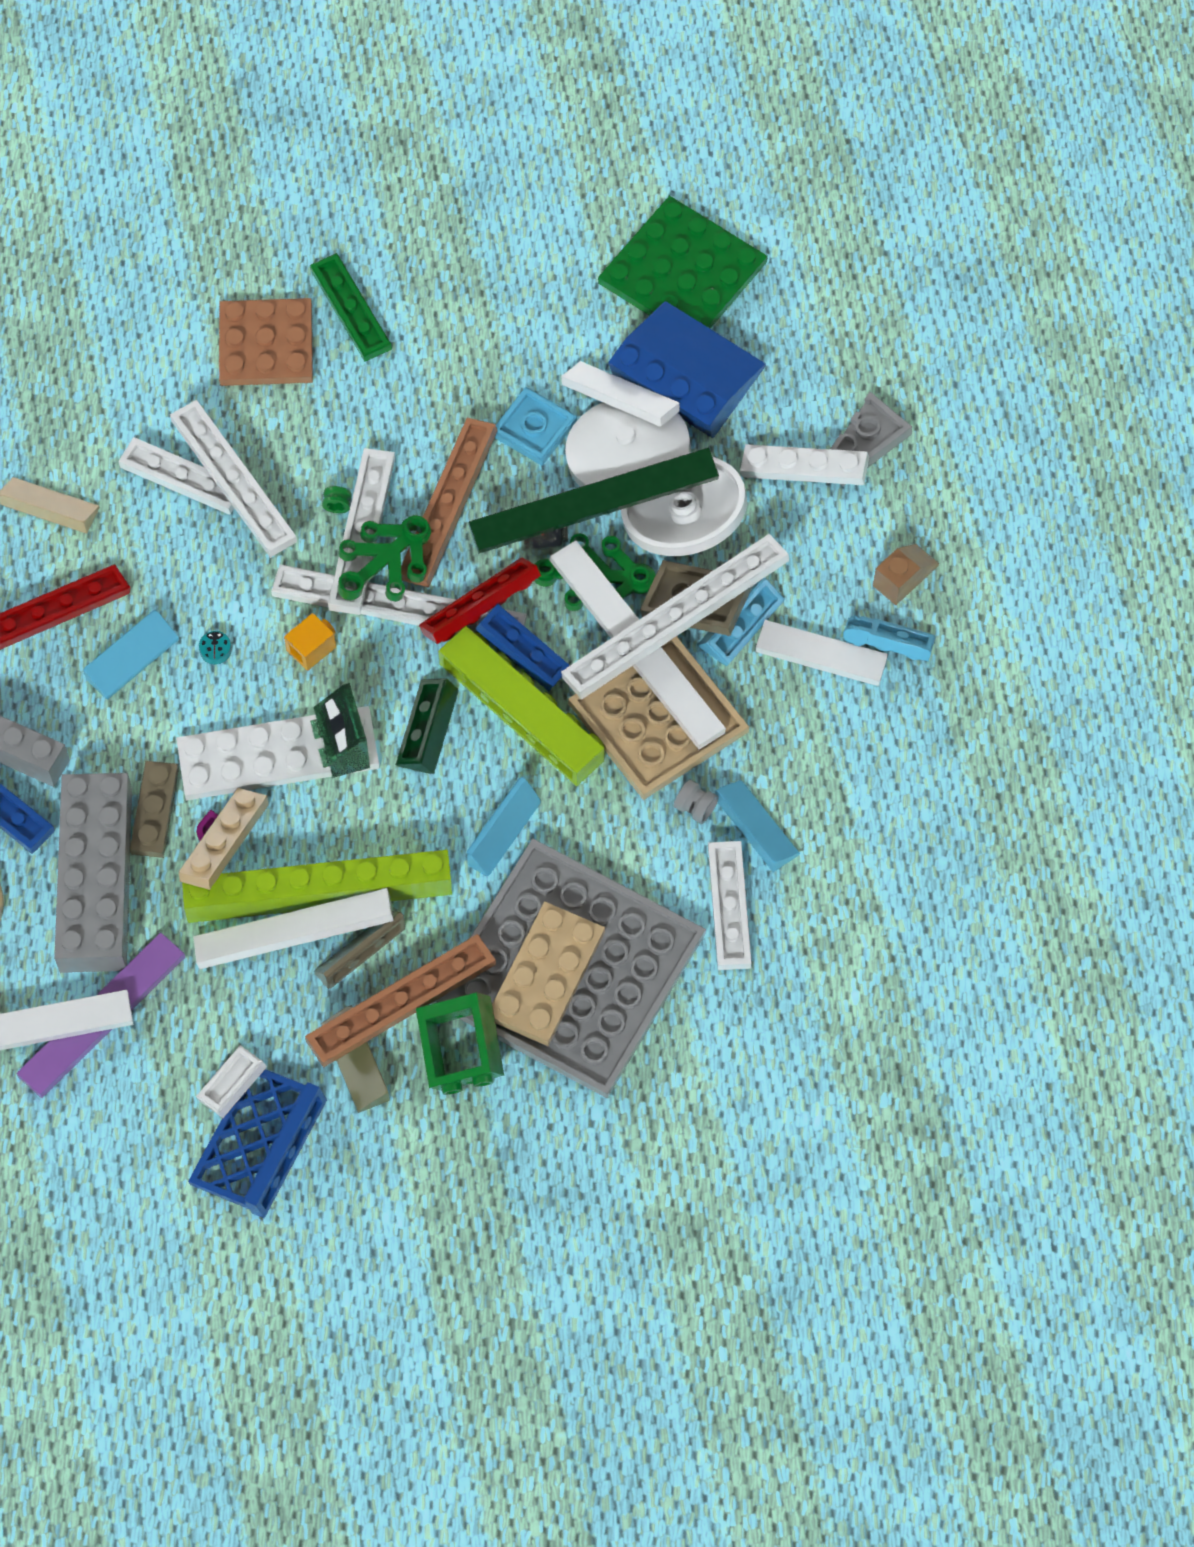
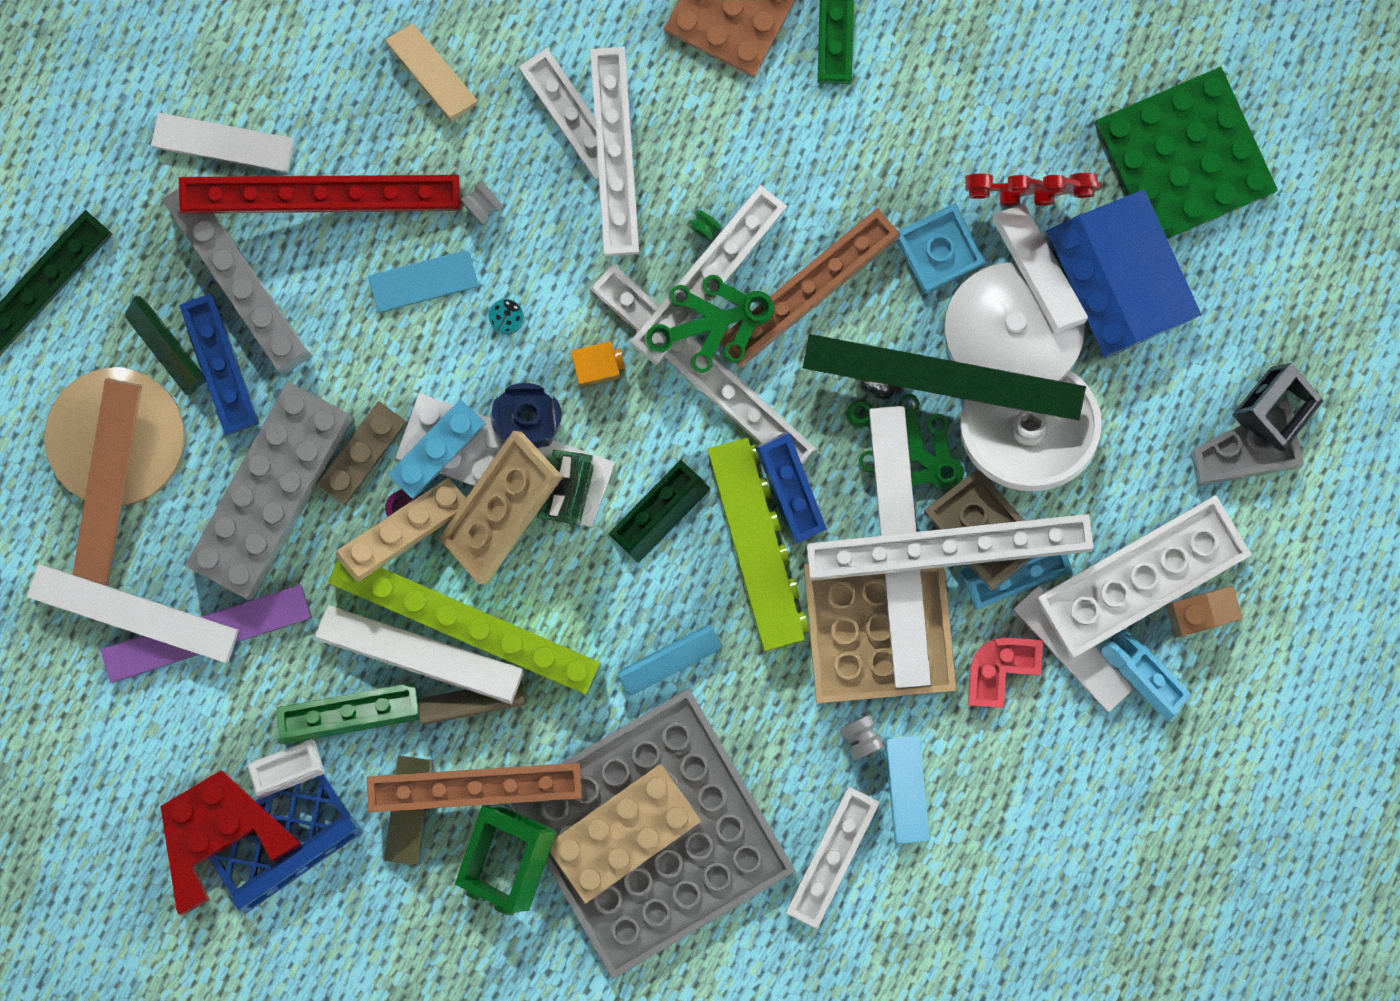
camera: 30 degrees right, 20 degrees up
(145, 573) = (481, 203): none -> light grey wheel
(191, 1155) = (206, 823): none -> red wing
(216, 766) = (436, 449): none -> medium azure plate
(259, 1009) = (348, 713): none -> green plate
(289, 710) = (538, 404): none -> dark blue plate
(295, 776) = (500, 507): none -> tan plate
(480, 600) = (777, 416): red plate -> none
(577, 337) = (1080, 184): none -> red plant
(766, 694) = (992, 663): none -> coral plate
(804, 464) = (1174, 445): white plate -> none
(841, 569) = (1143, 576): none -> white plate
(854, 413) = (1265, 394): none -> black tile

